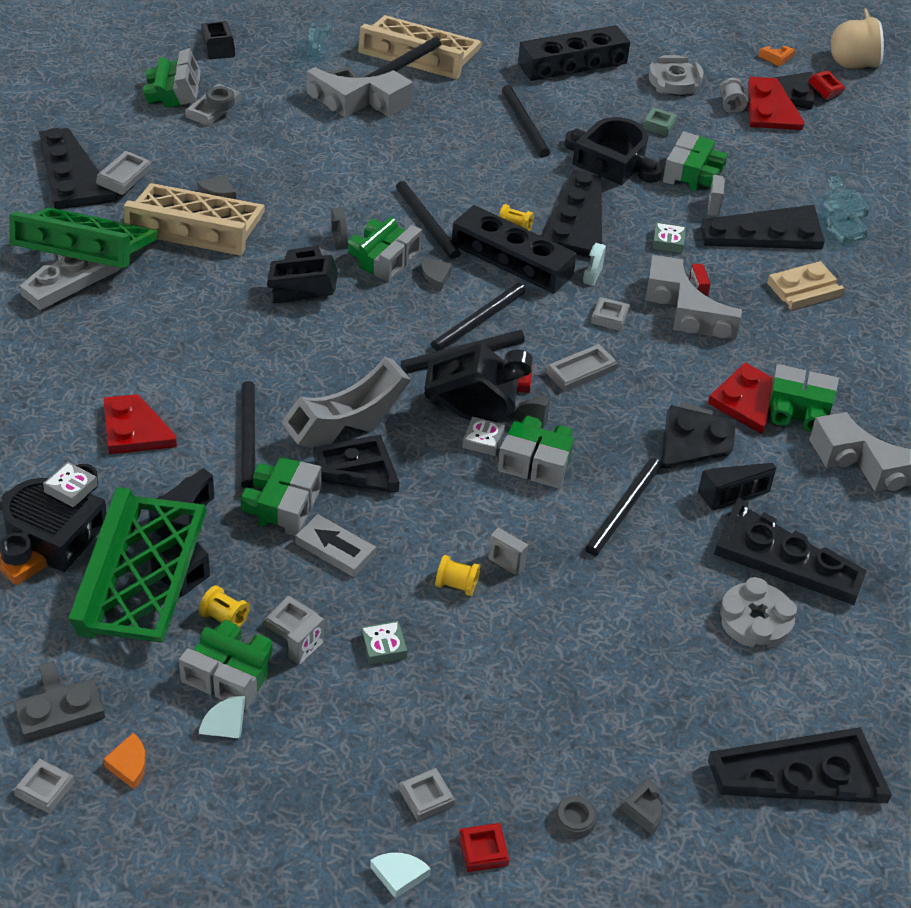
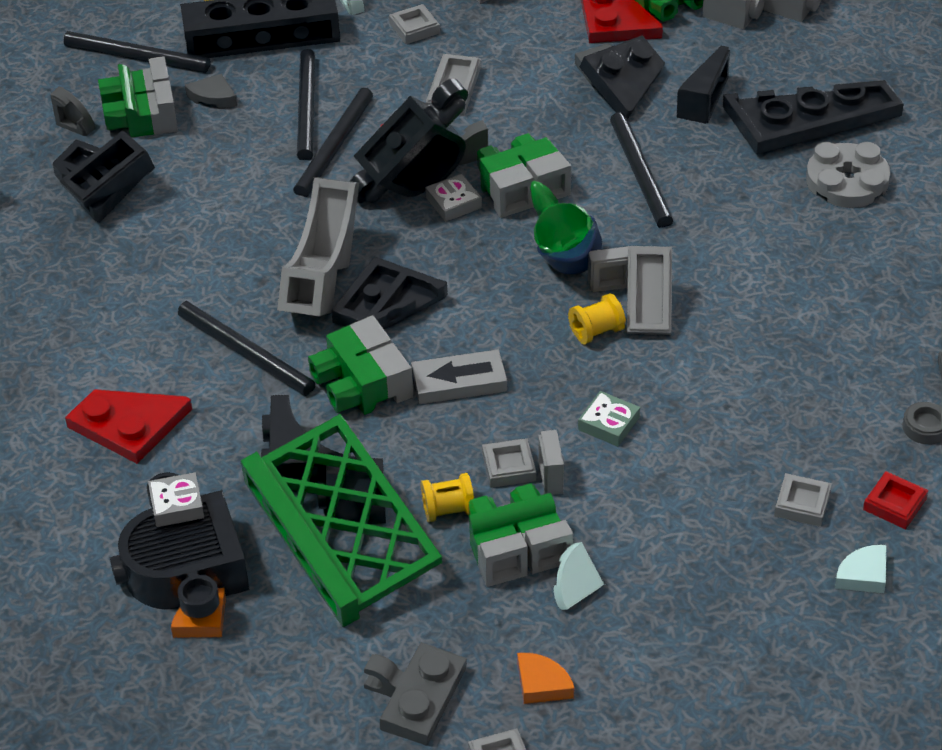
camera: 40 degrees left, 0 degrees up
(505, 504) = (563, 231): none -> green hair
(507, 582) = (649, 290): none -> light grey tile

